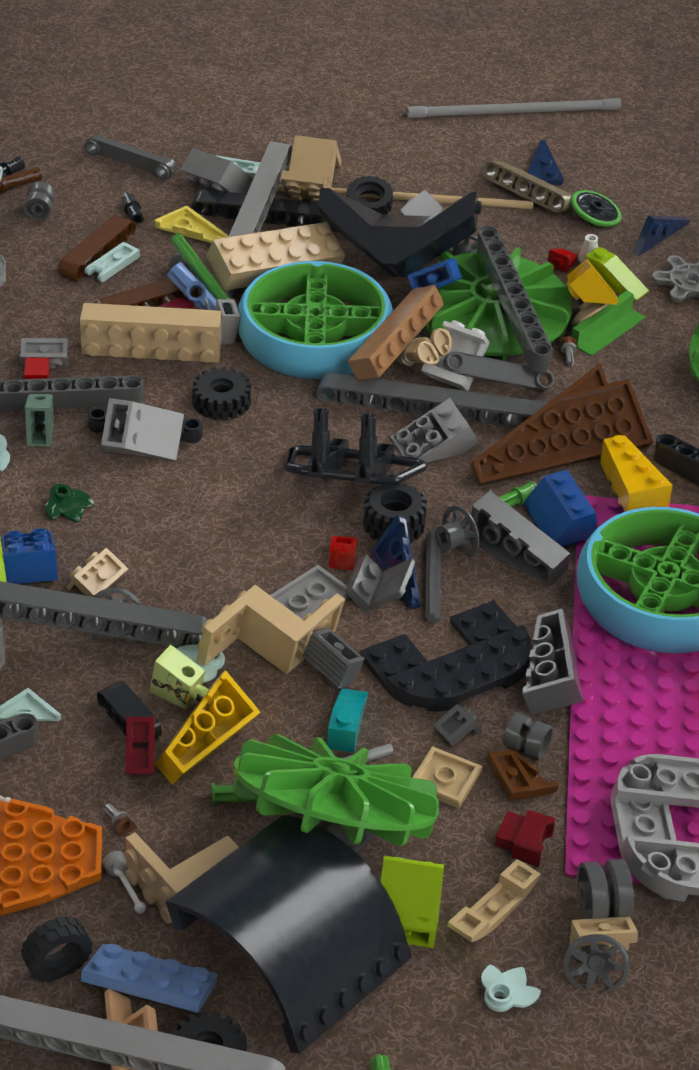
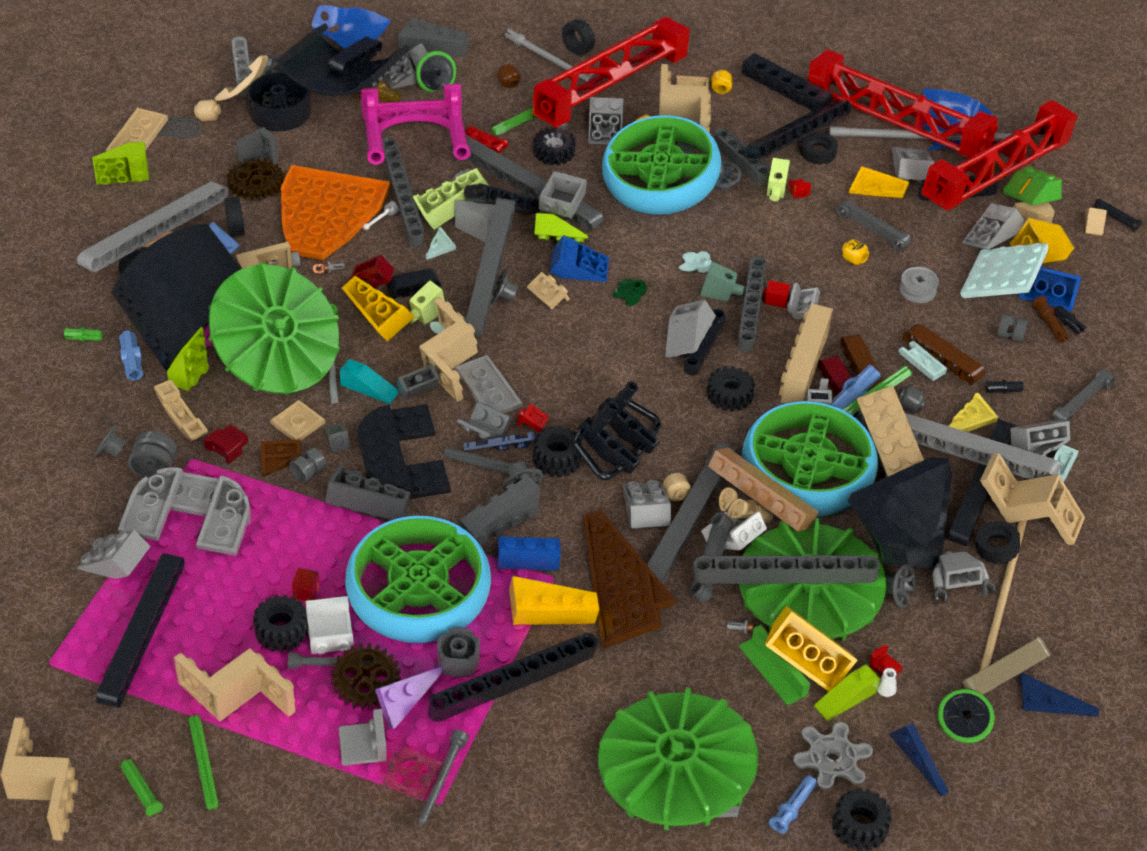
camera: 105 degrees right, 5 degrees up
(401, 414) = (675, 486): none -> tan head
(405, 1003) = (131, 355): none -> medium blue piece
(437, 275) = (829, 526): blue brick -> none
(510, 986) = (119, 405): light aqua plate -> none
(518, 495) = (561, 533): bright green axle -> none
(619, 928) = (123, 446): tan panel -> none

